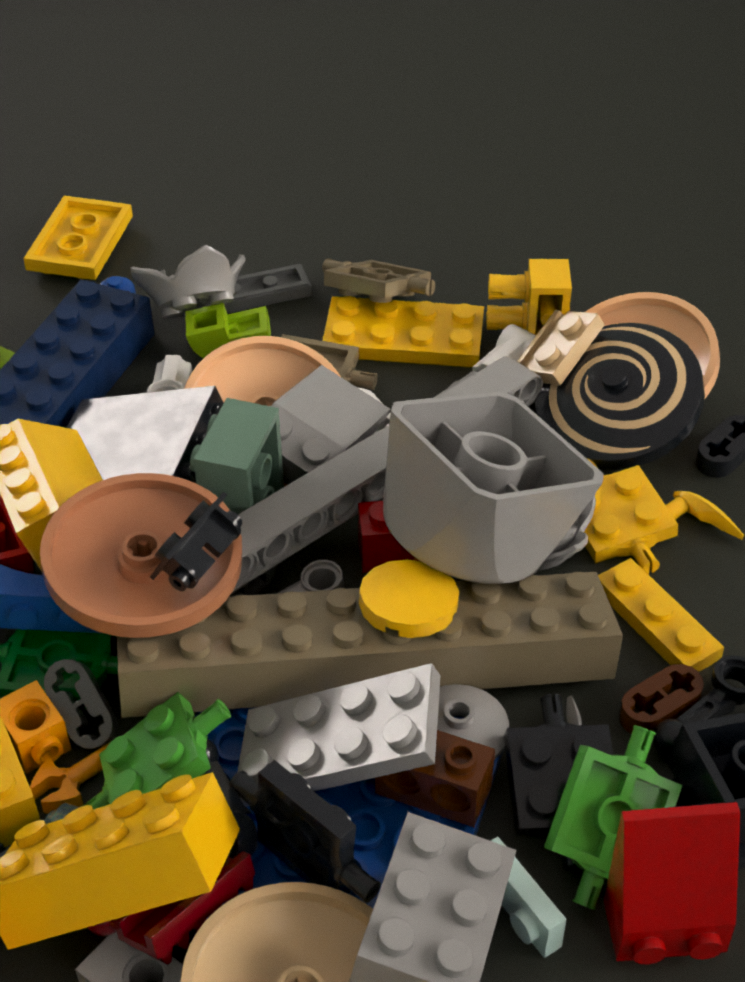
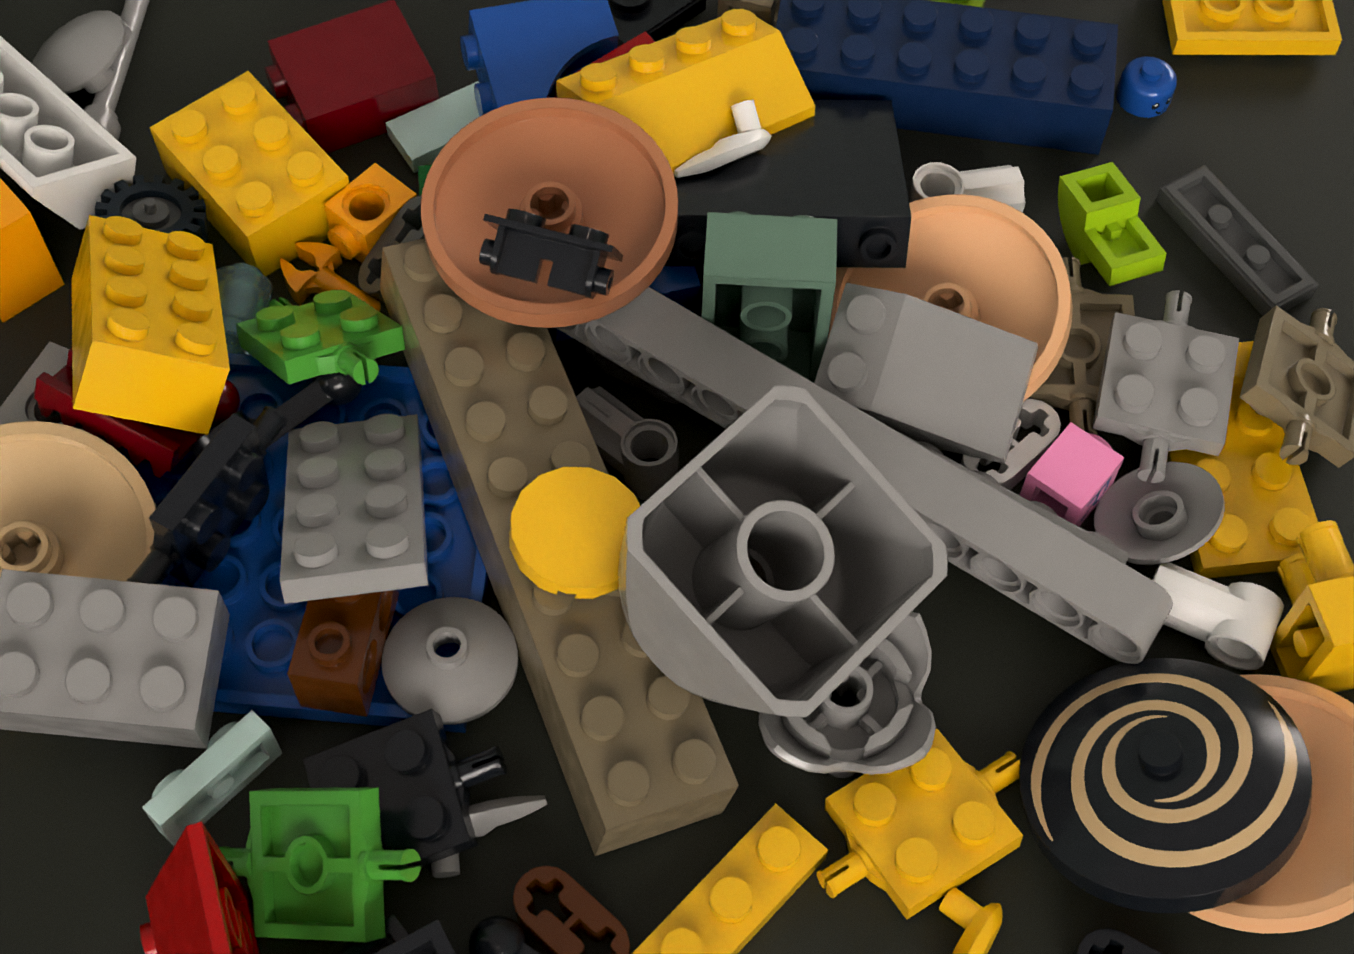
camera: 75 degrees right, 15 degrees up
(100, 456) = (732, 148): none -> white bar
(199, 282) = (1153, 147): light grey brick -> none
(358, 331) = (1166, 385): none -> light grey plate
(403, 382) = (1073, 474): none -> bright pink brick
(431, 350) = (1161, 518): none -> light grey dish
(561, 344) = (1224, 664): tan plate -> none

